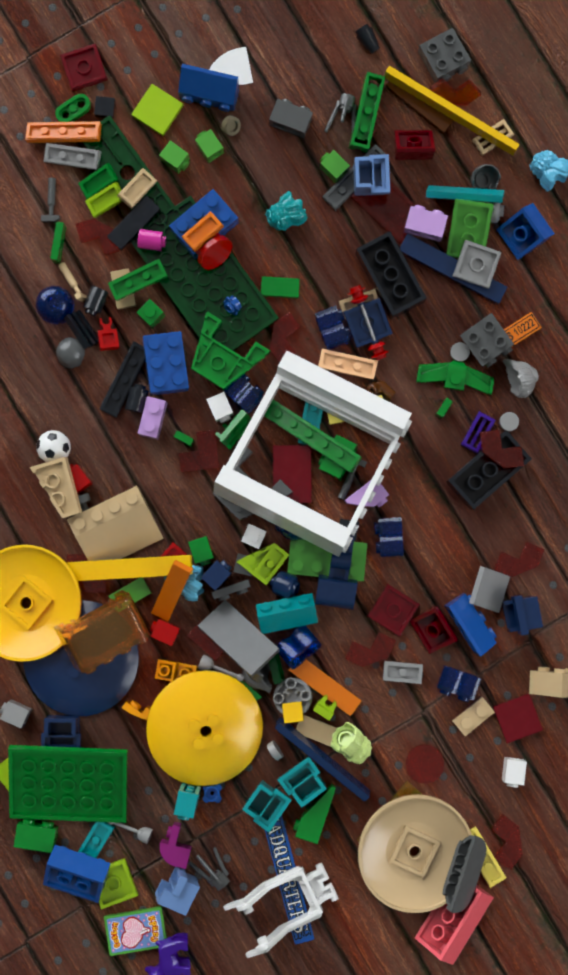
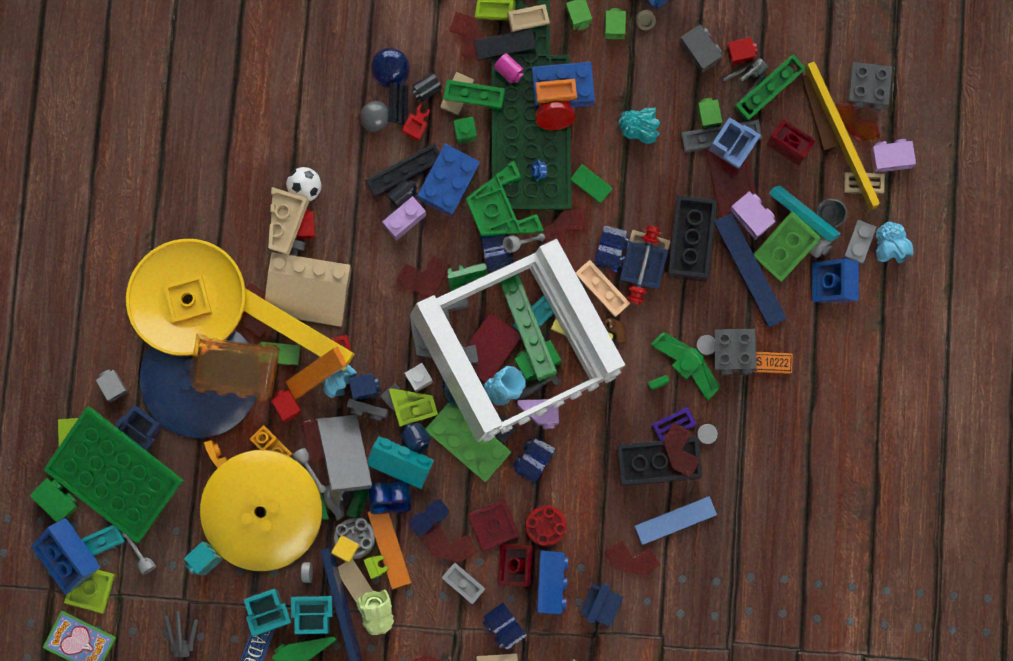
camera: 35 degrees right, 5 degrees down
(58, 242) = (430, 17): green tile -> none
(72, 282) = (418, 58): tan piece -> none
(172, 851) = (158, 594): magenta brick -> none
(178, 892) = (141, 632): medium blue plate -> none
(184, 438) = (418, 254): green tile -> none
(201, 551) = (365, 359): green brick -> none
(211, 798) = (221, 572): blue plate -> none
(220, 407) = (467, 249): white brick -> none
(253, 378) = (513, 243): none -> light grey hinge
(324, 98) = (741, 51): none -> red brick
(327, 495) = (505, 385): none -> medium azure hair
(336, 588) = (457, 470): dark blue plate -> none
(338, 645) = (424, 521): none -> clear blue brick
(367, 38) = (814, 26): black cone -> none
(434, 581) = (545, 526): none -> red tile
(476, 264) = (772, 280): light grey tile -> none
(489, 589) = (588, 564): light grey tile -> none
(501, 100) = (892, 156): none -> lavender brick
(521, 377) = (744, 403): light grey hair -> none
(522, 186) = (860, 241): none -> light grey plate
(531, 506) = (675, 520): none -> medium blue tile

